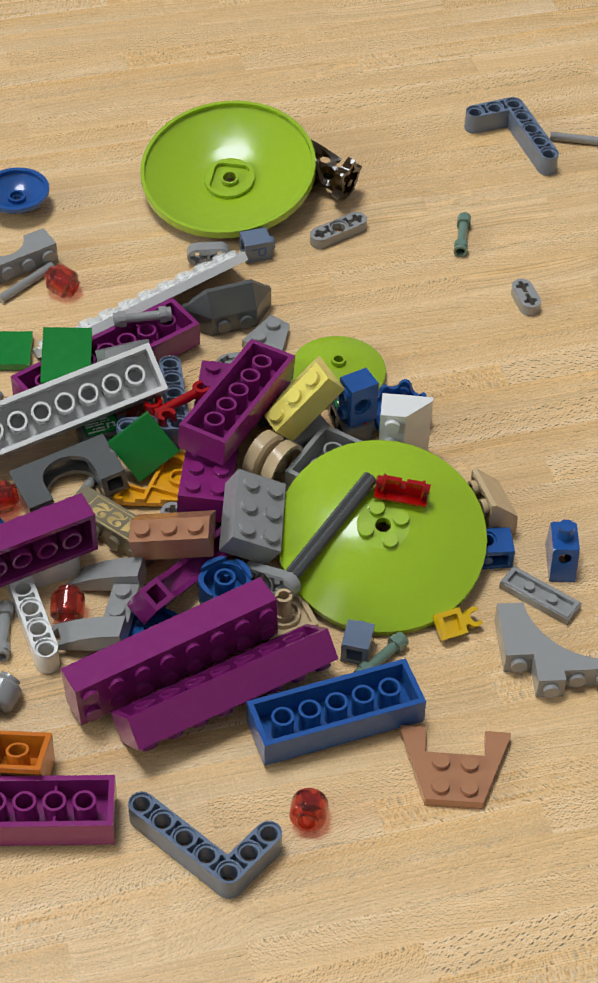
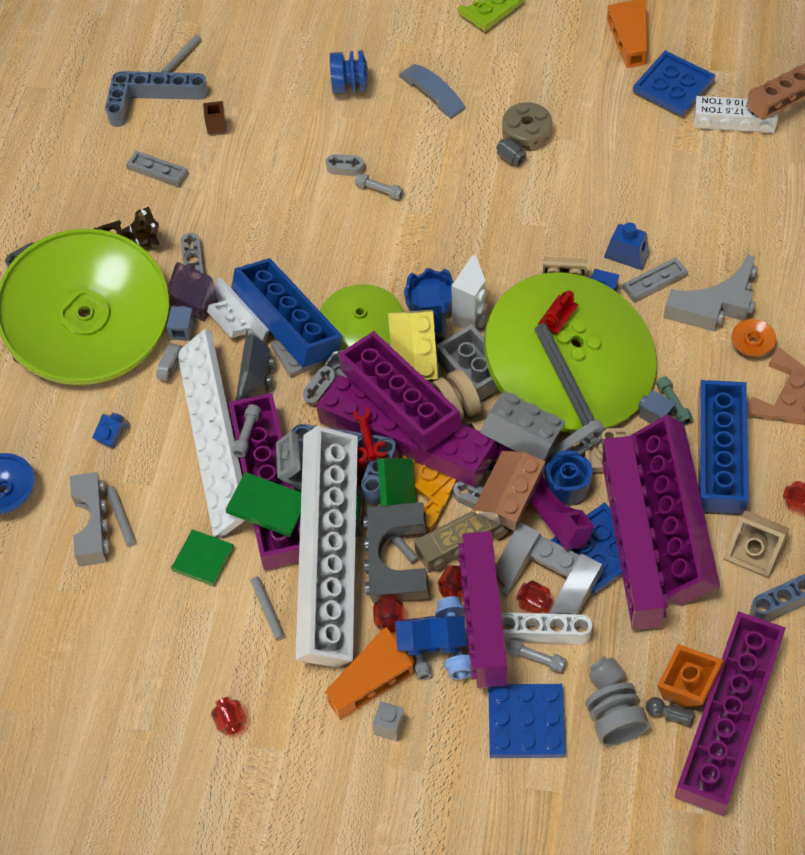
camera: 60 degrees left, 10 degrees up
(62, 280) = (141, 485): clear red head -> none
(113, 239) = (109, 428): none -> blue bracket
(227, 782) = (756, 543): none -> tan slope
(284, 275) = (234, 314): none -> white bracket
(292, 237) = (191, 290): none -> clear purple slope
(305, 302) = (286, 312): none -> blue brick
(431, 171) = (157, 169): none -> light grey tile
(455, 623) = (663, 342): yellow plate -> none
(463, 225) = (262, 183): sand green bar -> none
(510, 696) = (756, 331): none -> orange dish
(513, 181) = (215, 117): none -> reddish brown brick
(516, 343) = (363, 181): none -> light grey bar

